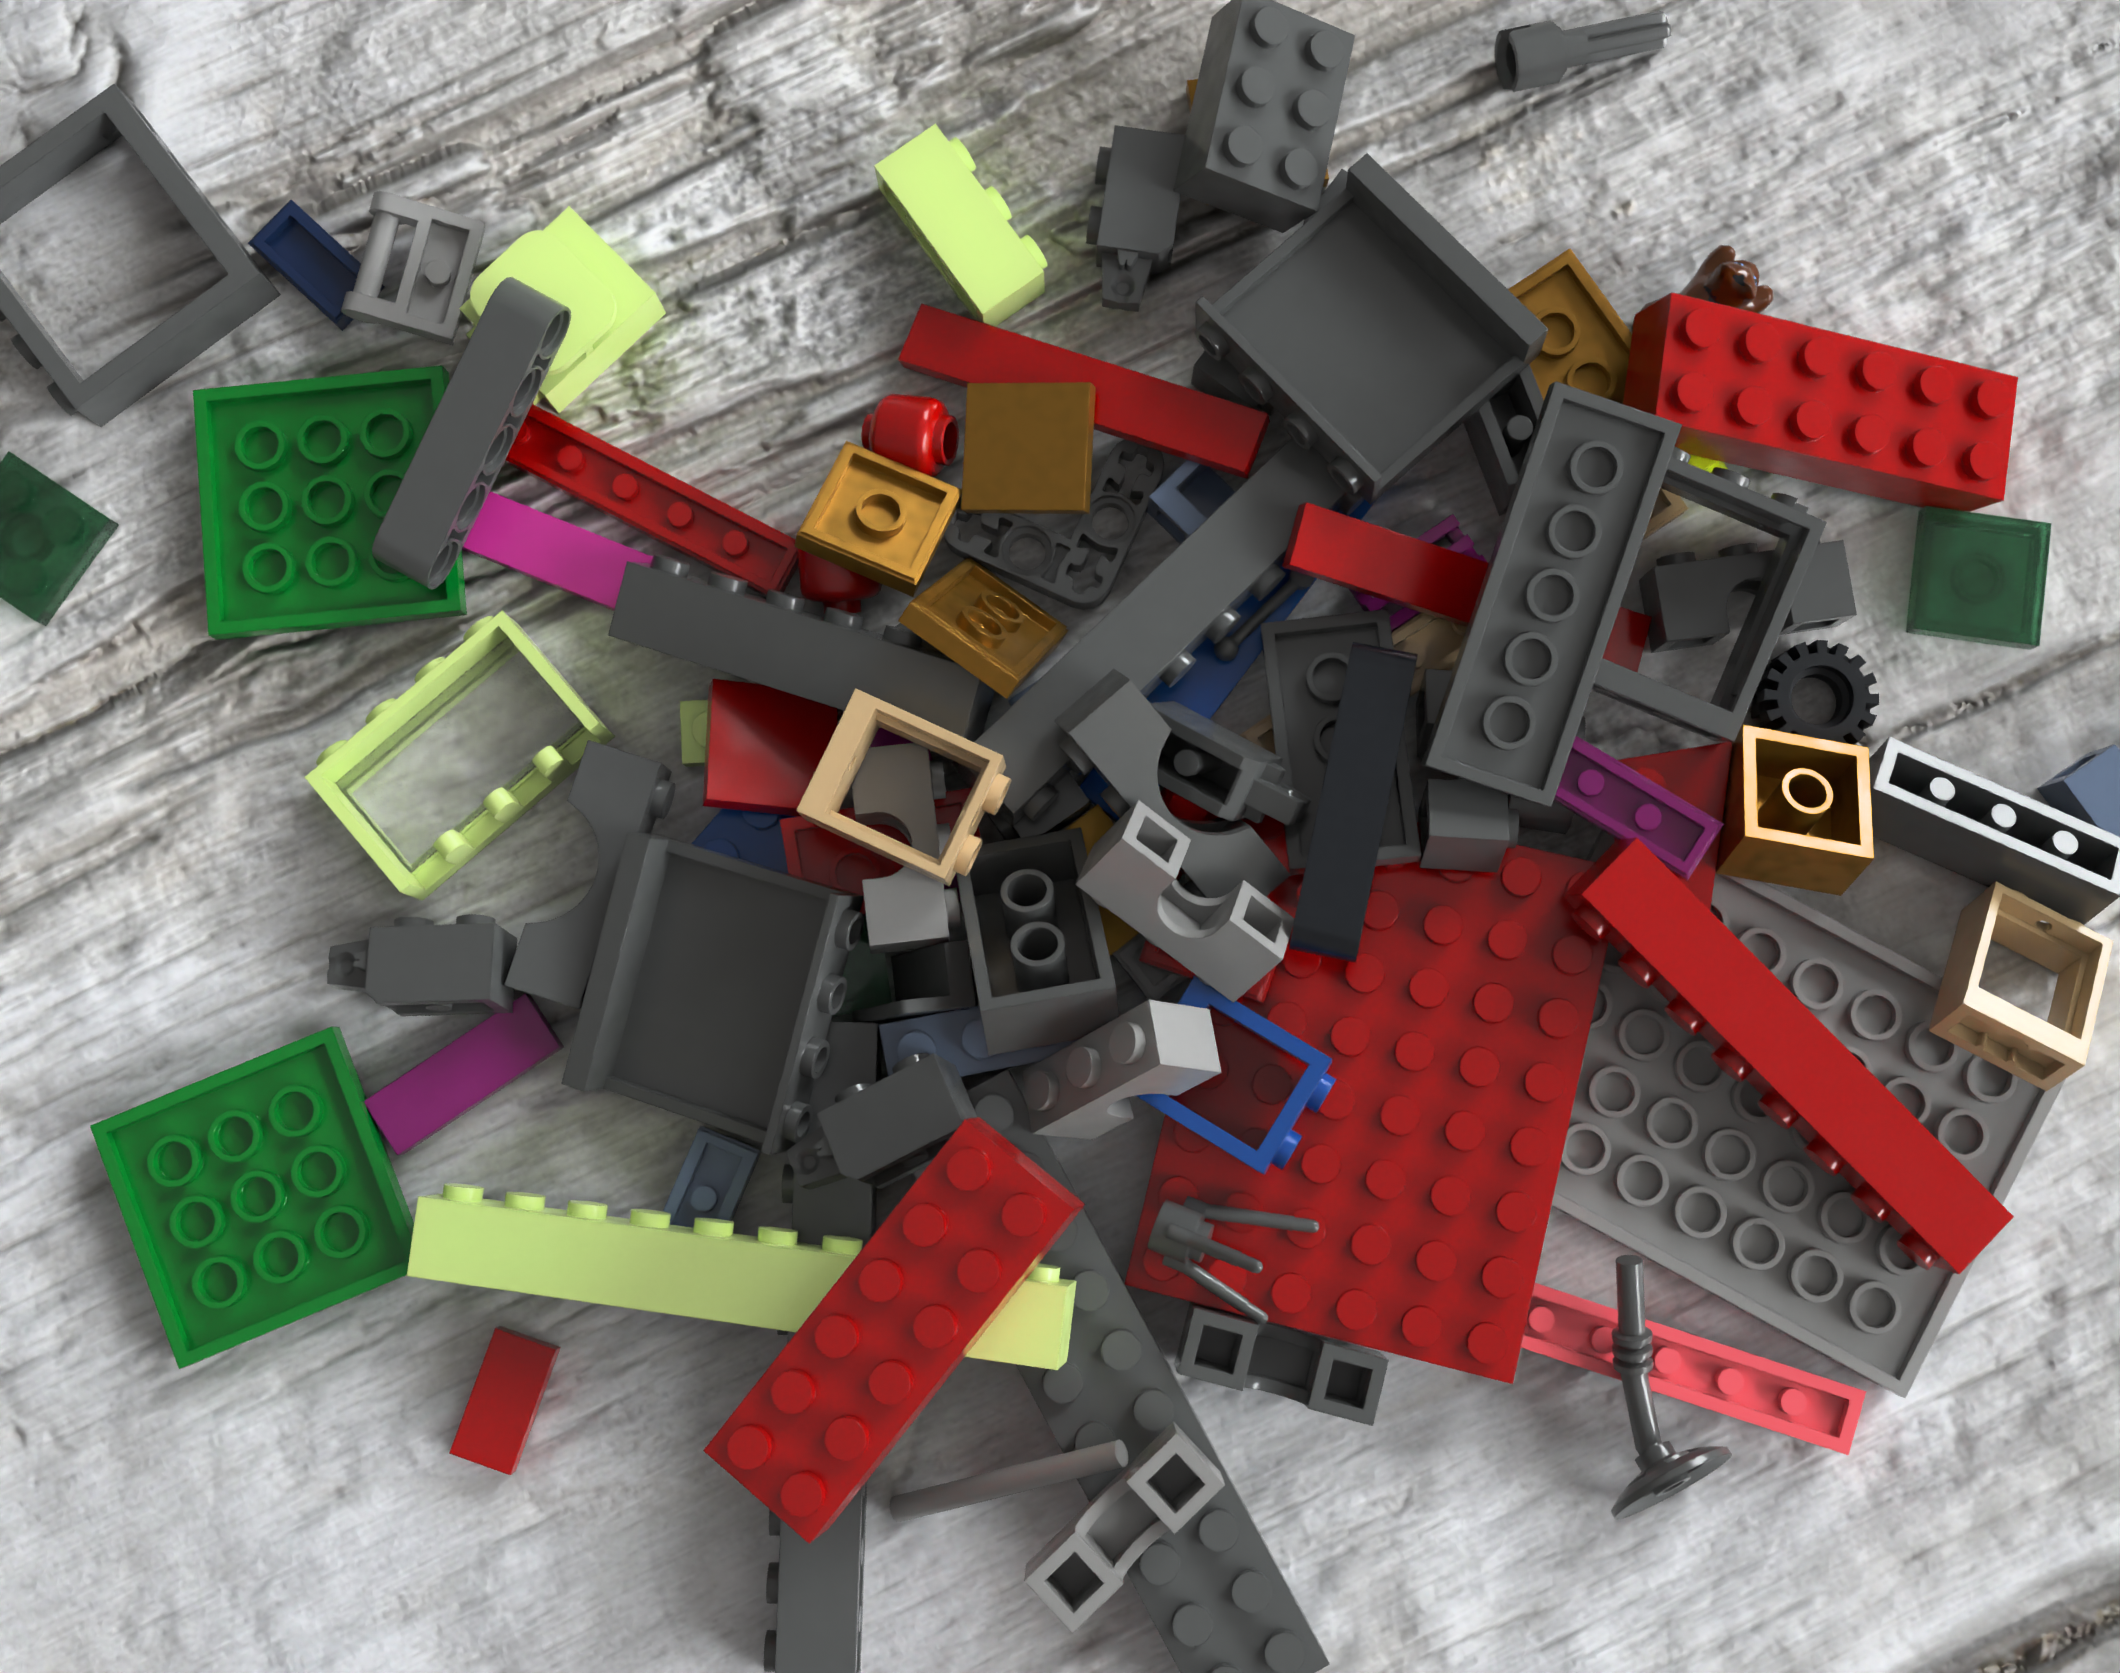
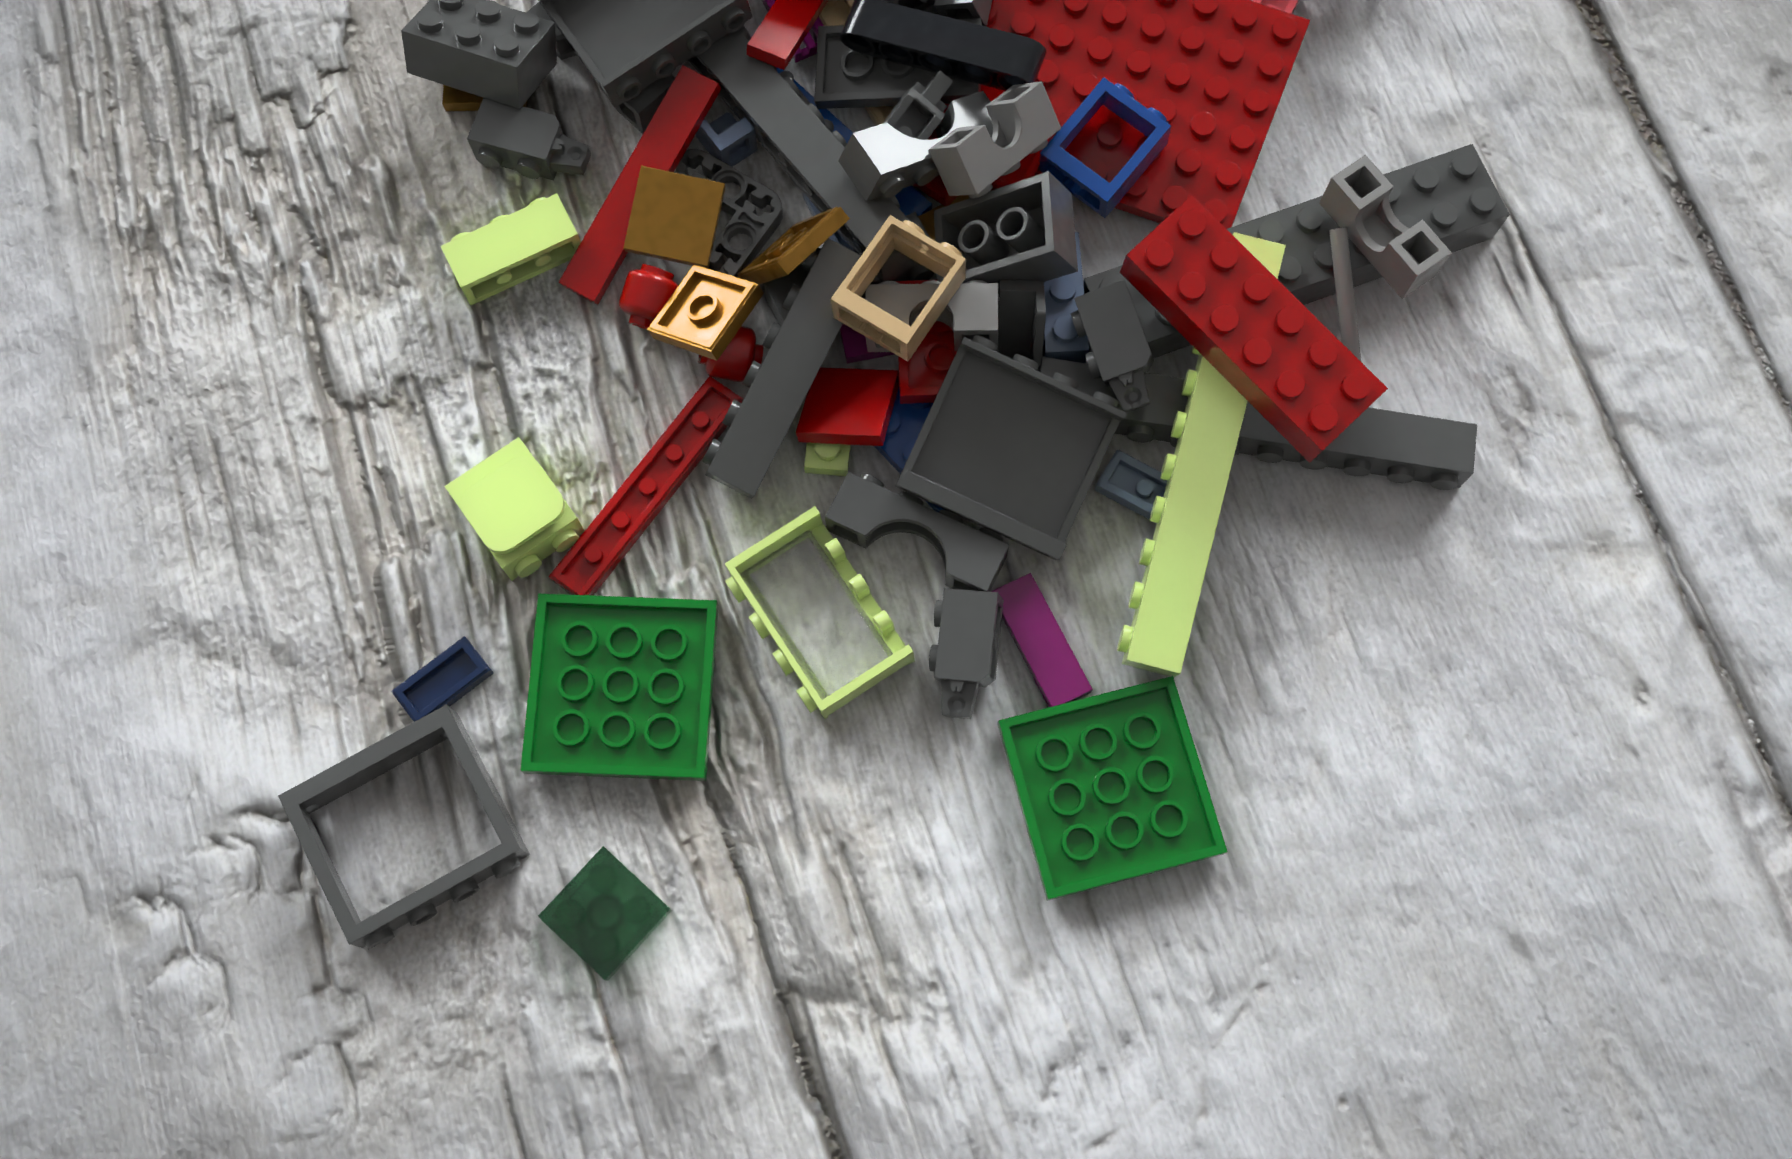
camera: 85 degrees left, 10 degrees down
(434, 274) = (466, 593): light grey plate -> none
(471, 432) = (598, 557): dark grey beam -> none
(505, 1400) = (1266, 639): red tile -> none
(551, 550) = (685, 539): dark pink tile -> none
(1141, 1052) = (1091, 186): light grey arch -> none
(1184, 1235) = (1204, 182): dark grey plant -> none
(1282, 1361) = (1284, 151): dark grey arch -> none

